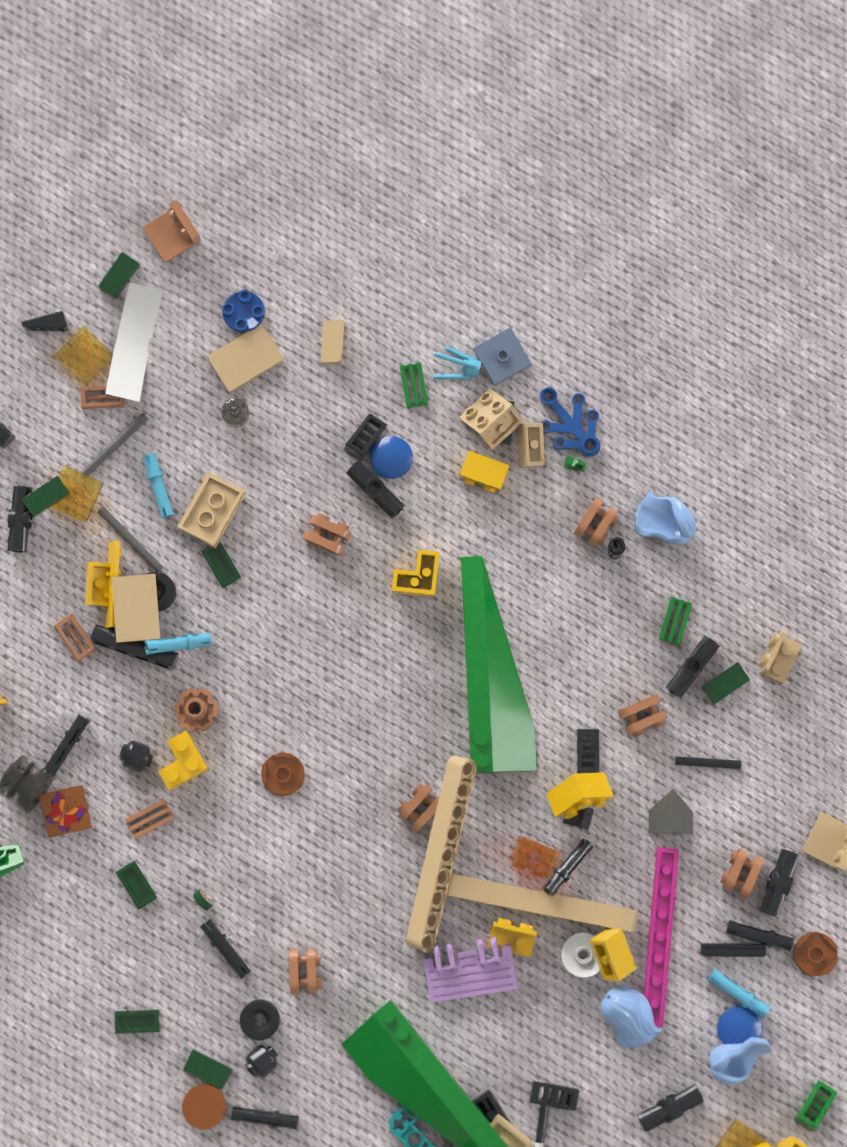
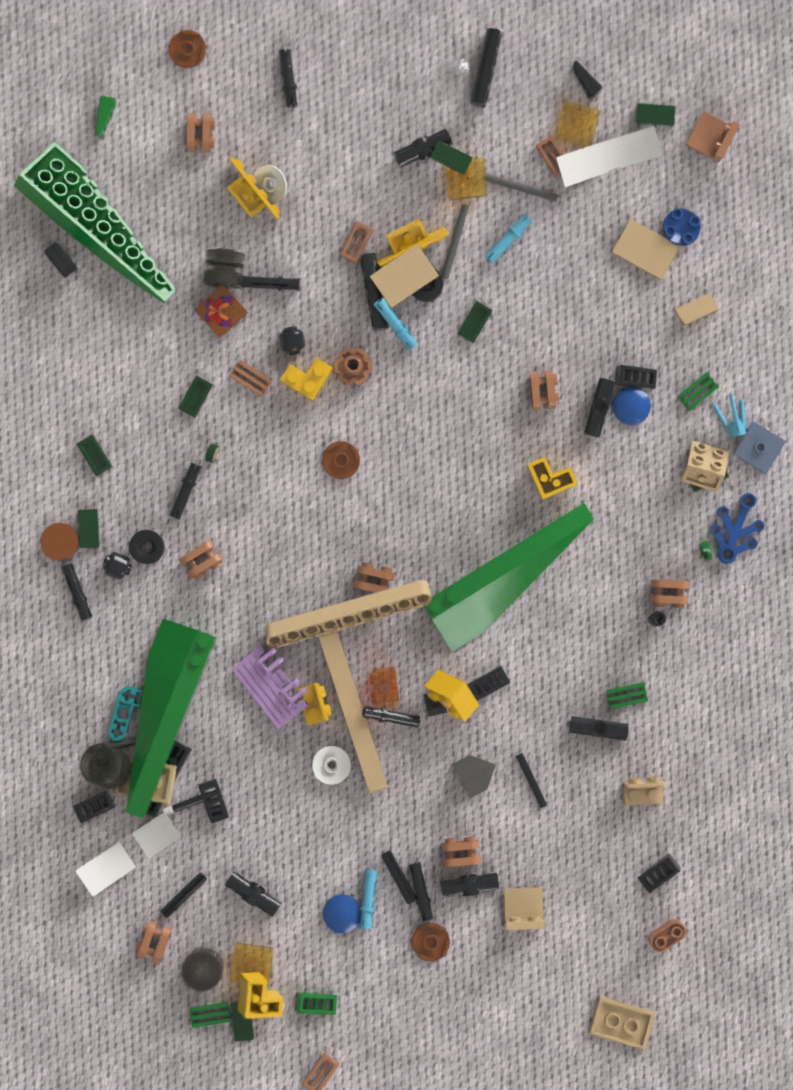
camera: 60 degrees right, 5 degrees up
(211, 510) = (512, 290): tan tile -> none
(237, 419) = (593, 270): clear smoke head -> none
(484, 472) = (660, 484): yellow brick -> none
(530, 444) = (702, 508): tan slope -> none
(613, 954) = (344, 787): yellow brick -> none
(629, 1016) = (305, 825): light blue piece -> none
(655, 719) = (541, 722): nougat brick -> none
(660, 931) = (377, 815): dark pink tile -> none
(665, 519) = (701, 644): light blue piece -> none
(725, 683) = (600, 760): dark green tile -> none
(733, 1062) = (314, 924): light blue piece -> none

